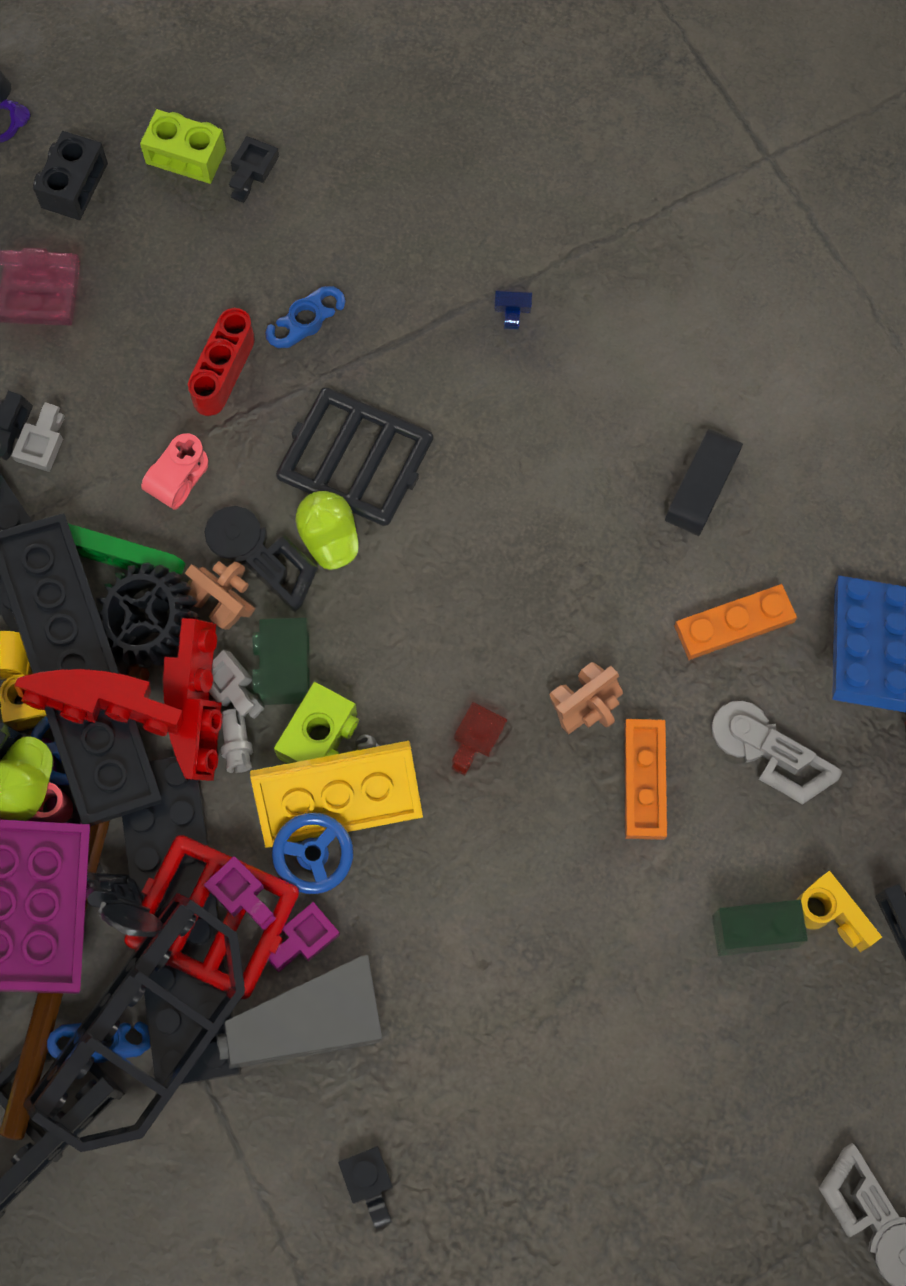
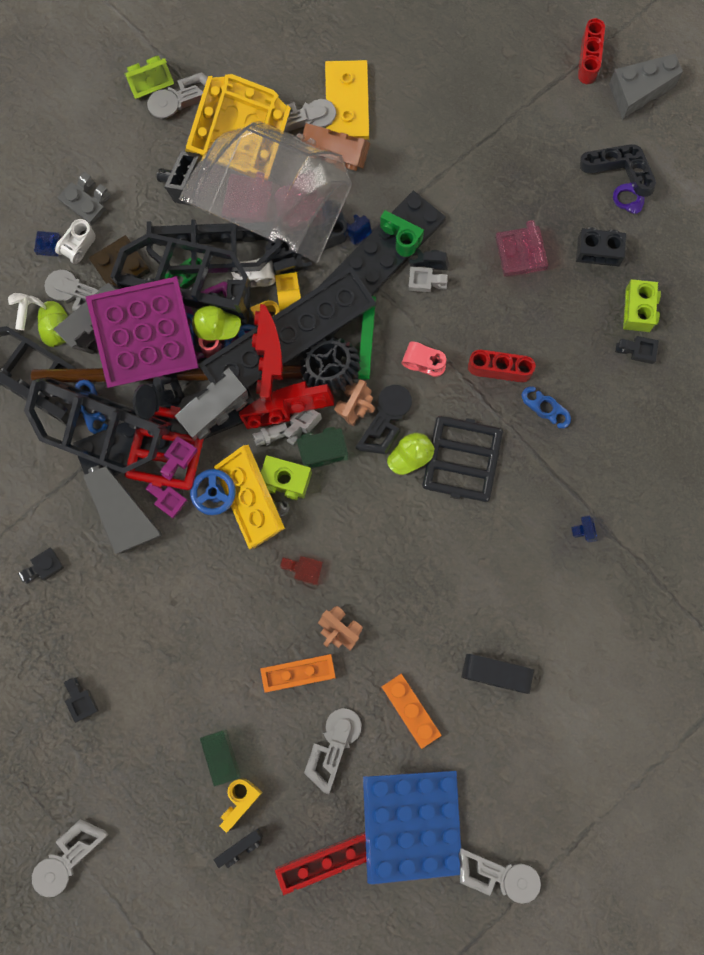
camera: 80 degrees right, 5 degrees up
(168, 807) = (213, 406): none -> wedge
(625, 1153) = (81, 703): none -> black plate

